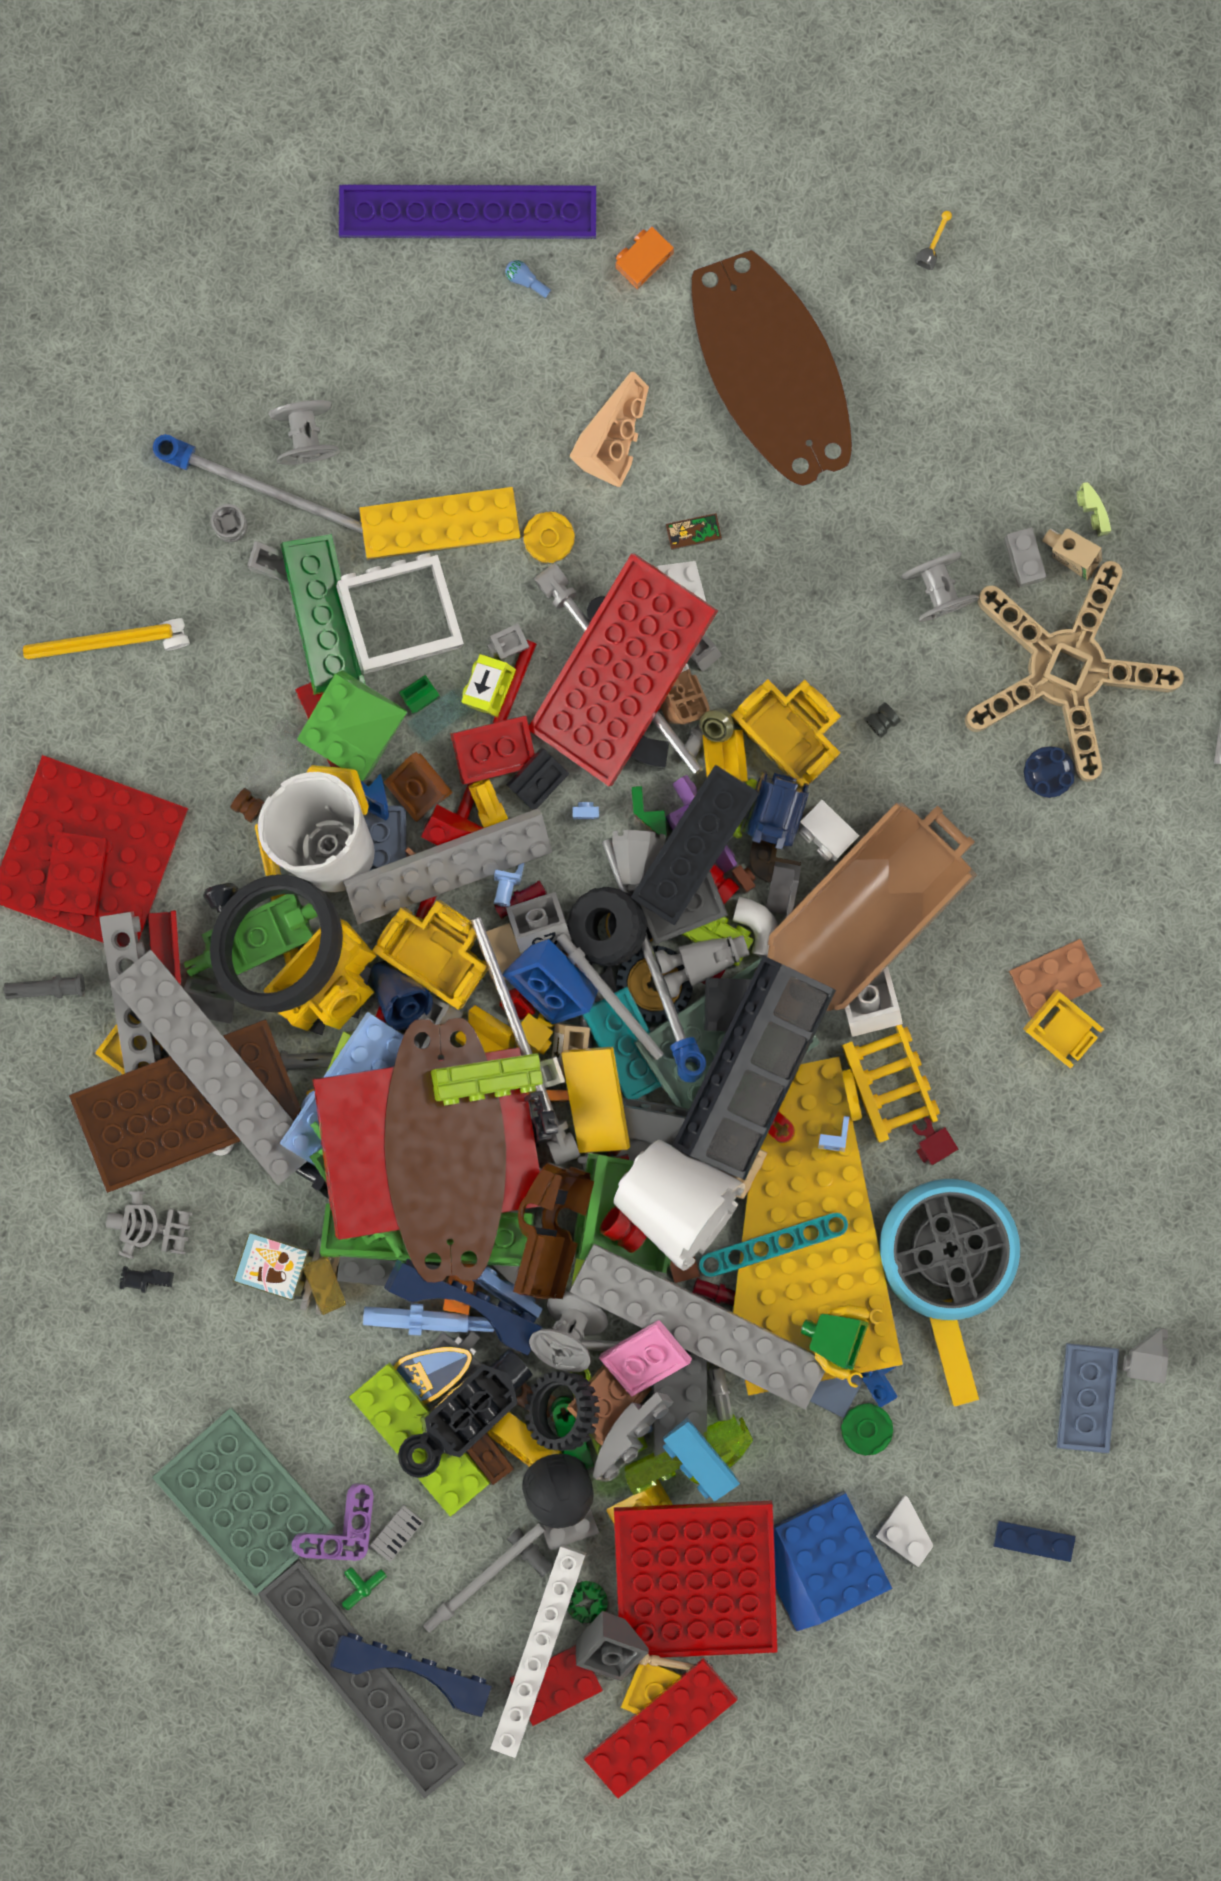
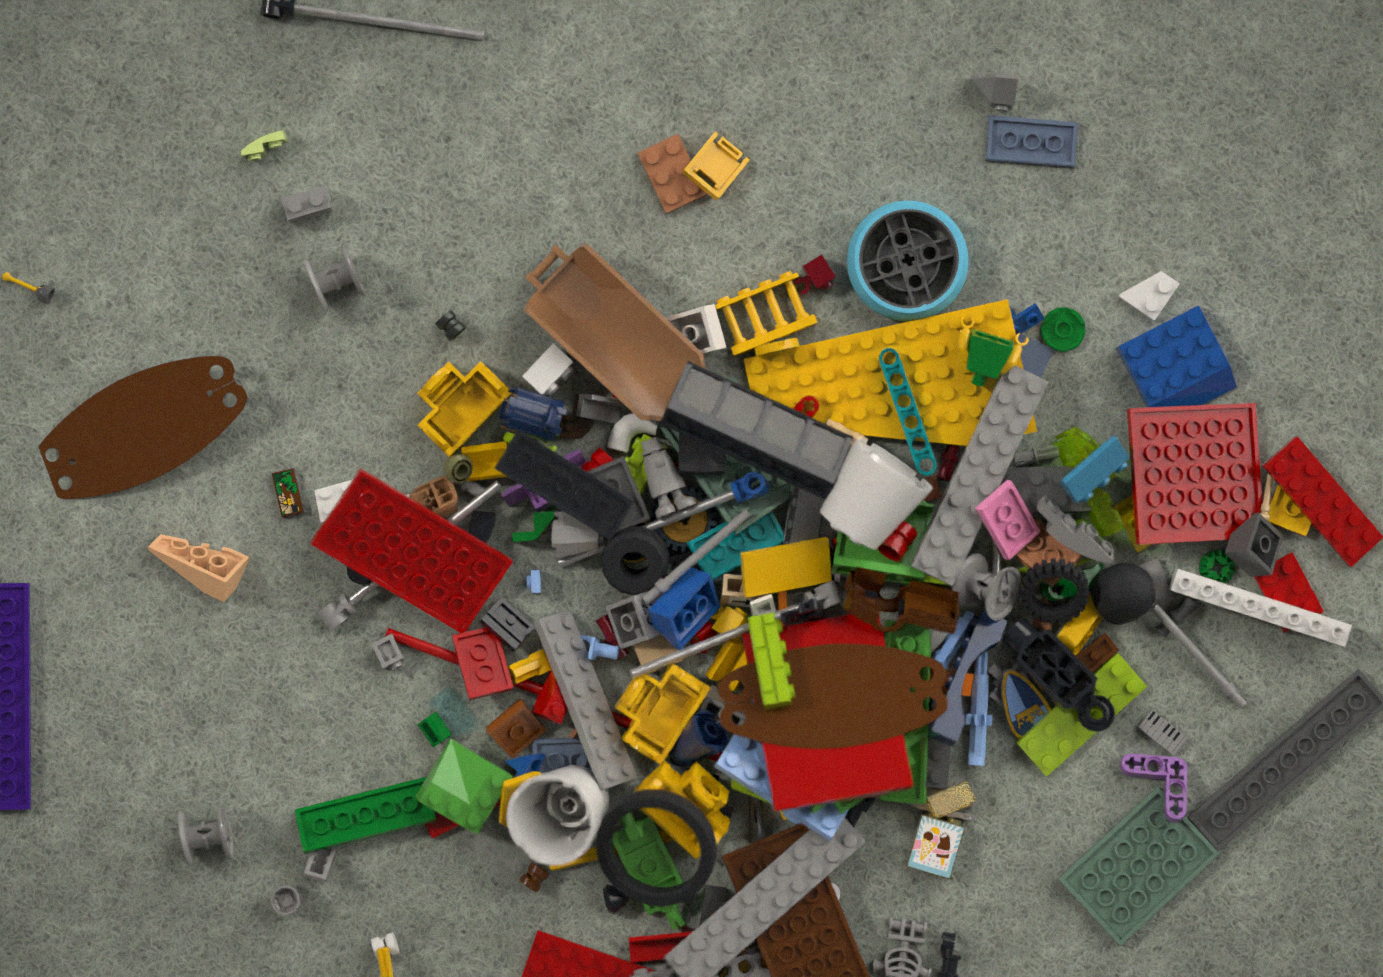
camera: 90 degrees left, 0 degrees up
(184, 455) = (227, 941): flat silver piece -> none
(363, 1588) = (1210, 760): green piece -> none
(410, 654) = (400, 738): white window -> none
(439, 523) = (283, 715): yellow plate -> none
(461, 1692) = (1297, 673): dark blue arch -> none
(488, 685) = (425, 669): neon yellow brick -> none
(520, 274) = (62, 648): medium blue piece -> none
(549, 547) = (294, 618): yellow tile -> none
(643, 257) = (46, 540): orange brick -> none
(705, 653) = (395, 479): light grey slope -> none
(744, 878) = (590, 442): copper plate -> none
(835, 1142) = (819, 359): light blue panel -> none
(954, 1360) = (1002, 255): yellow tile -> none
(1034, 1541) = (1154, 185): dark blue plate -> none
(1049, 772) = (493, 181): dark blue dish -> none
(1079, 644) = (382, 155): tan beam -> none
(1081, 559) = (305, 153): tan torso -> none

